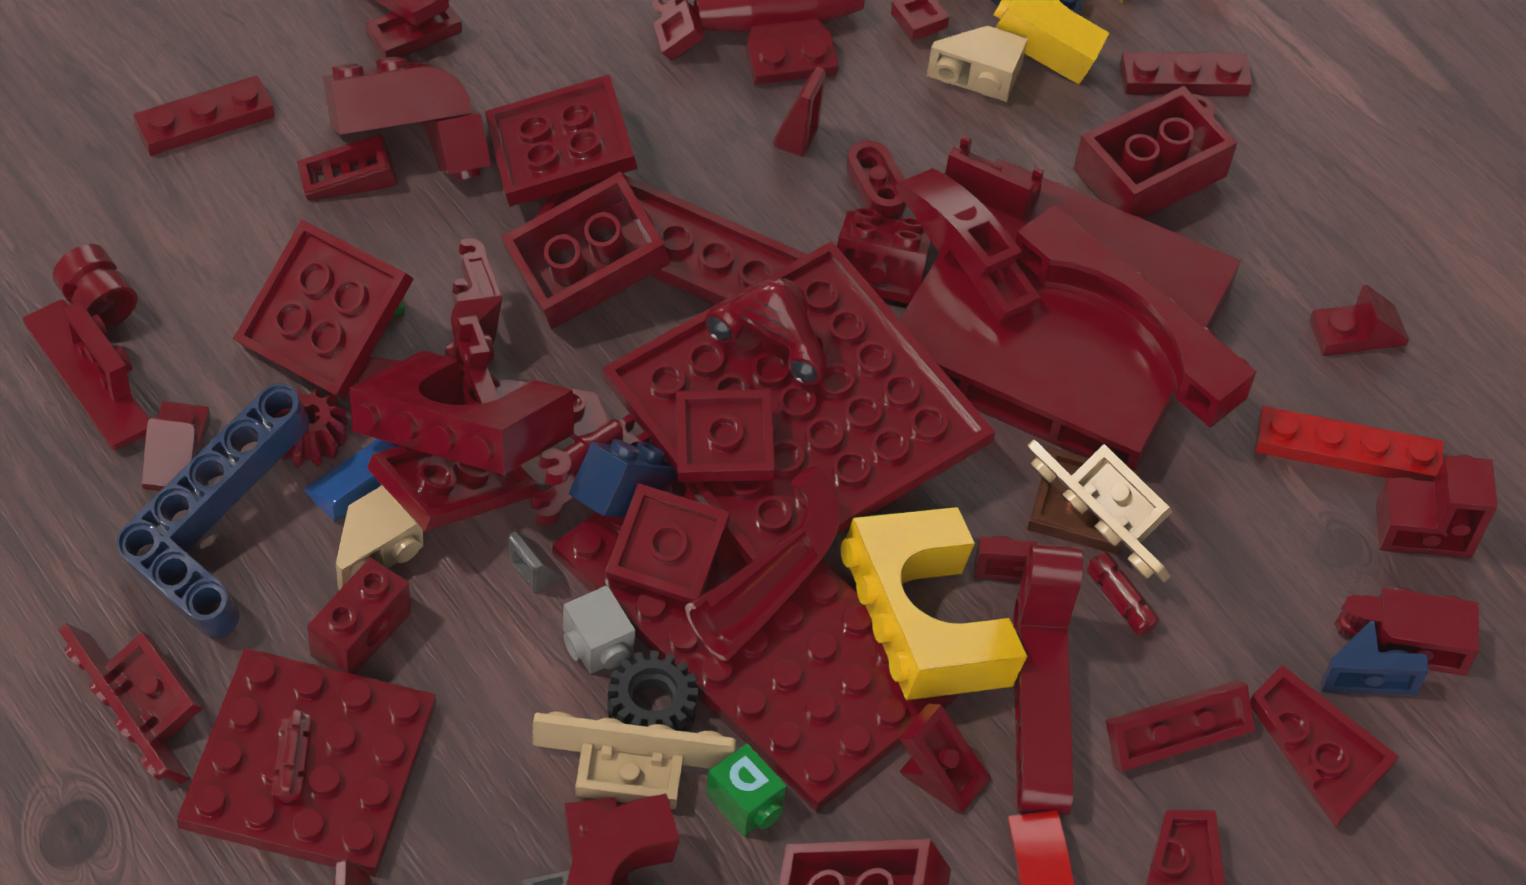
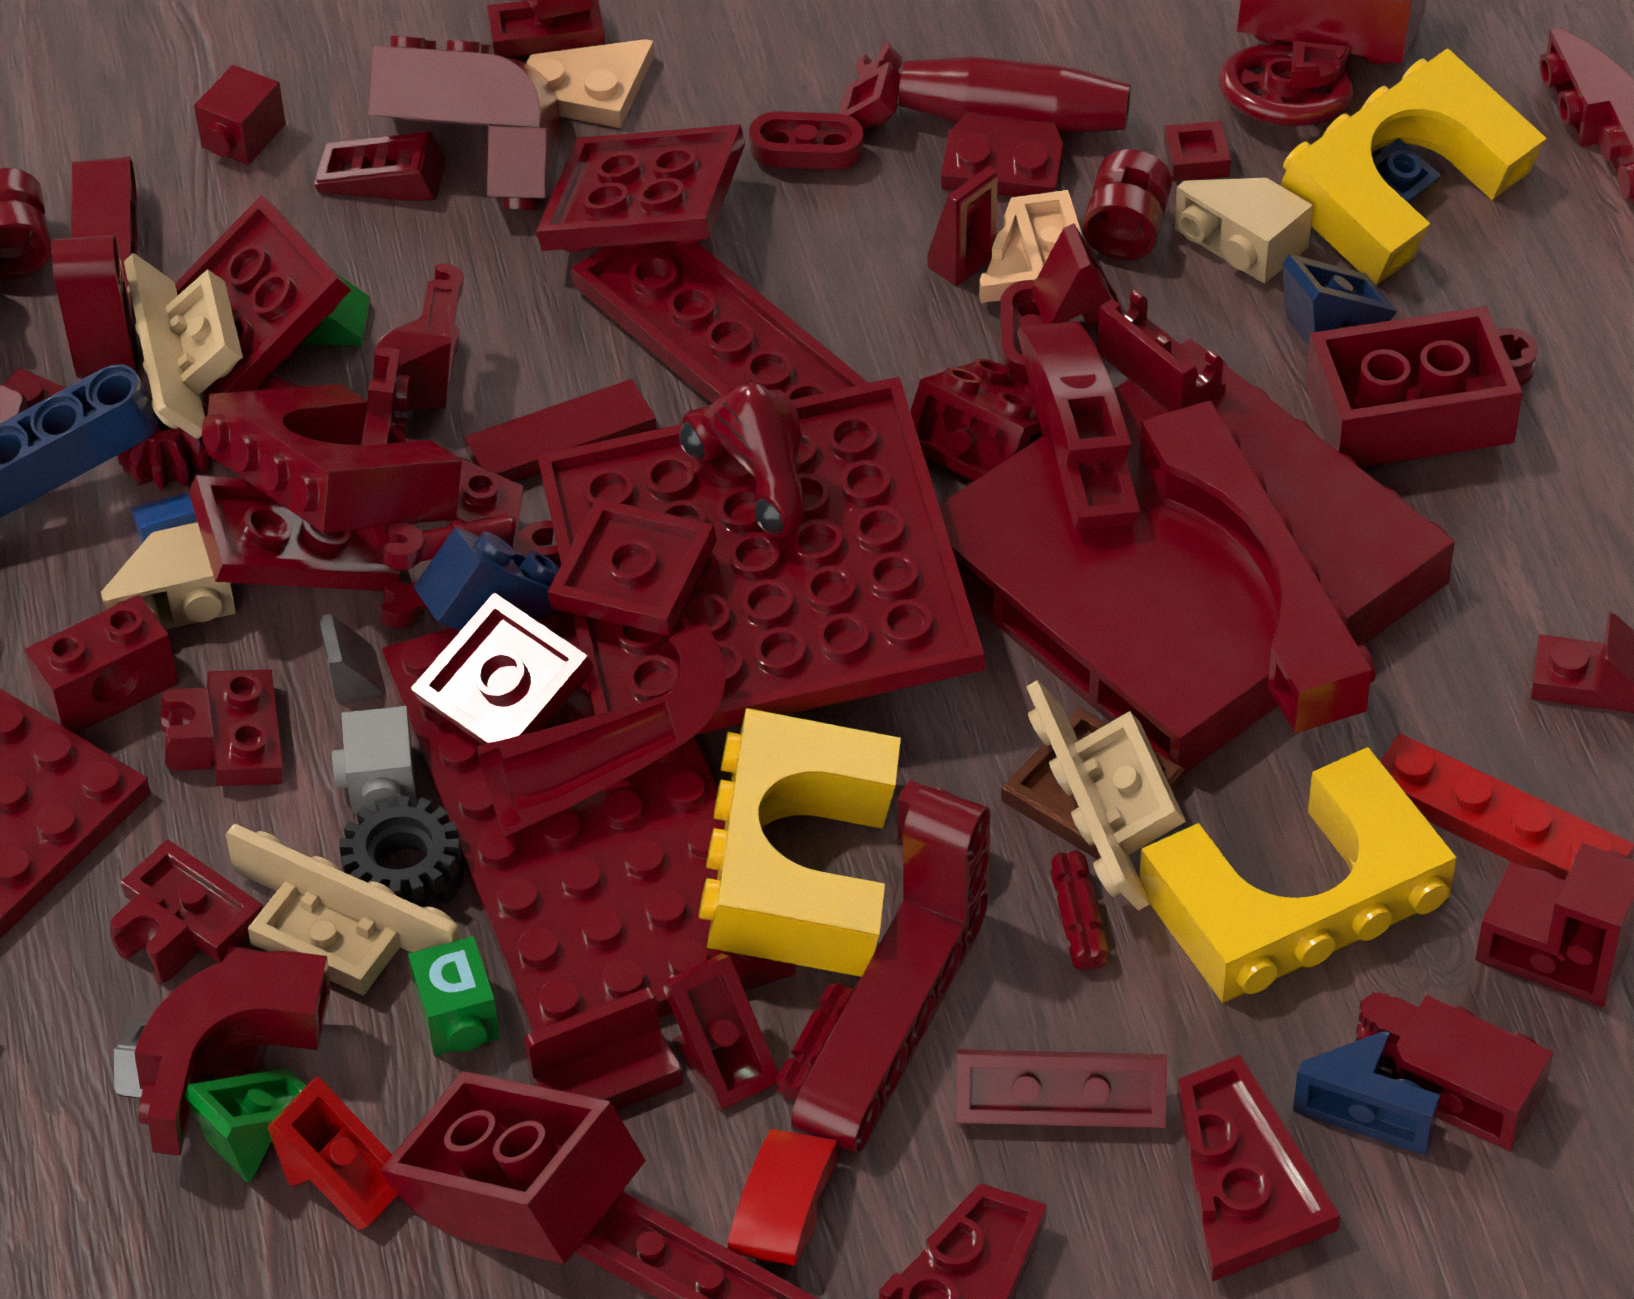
camera: 30 degrees right, 5 degrees down
(202, 322) = (92, 269): none -> dark red beam
(203, 115) = (298, 65): dark red plate -> none
(223, 154) = (240, 114): none -> dark red brick
(302, 345) = (183, 339): none -> tan bracket
(471, 59) = (596, 81): none -> light nougat wing
(474, 635) = (226, 724): none -> dark red plate
(516, 786) = (180, 907): none -> dark red plate
(586, 250) = (593, 317): dark red brick -> none
(591, 342) = (591, 418): none -> dark red tile
(649, 72) = (806, 140): none -> dark red plate
(852, 115) = (1026, 240): none -> light nougat wing
(872, 802) = (606, 1053): none -> dark red panel
(898, 67) = (1127, 205): none -> dark red wheel
(902, 139) = (1072, 282): none -> dark red slope
(1003, 743) = (812, 1040): none -> dark red axle
(1064, 105) = (1327, 295): none -> dark blue slope
(1198, 71) = (1531, 303): dark red plate -> none
(1241, 579) = (1251, 937): none -> yellow arch

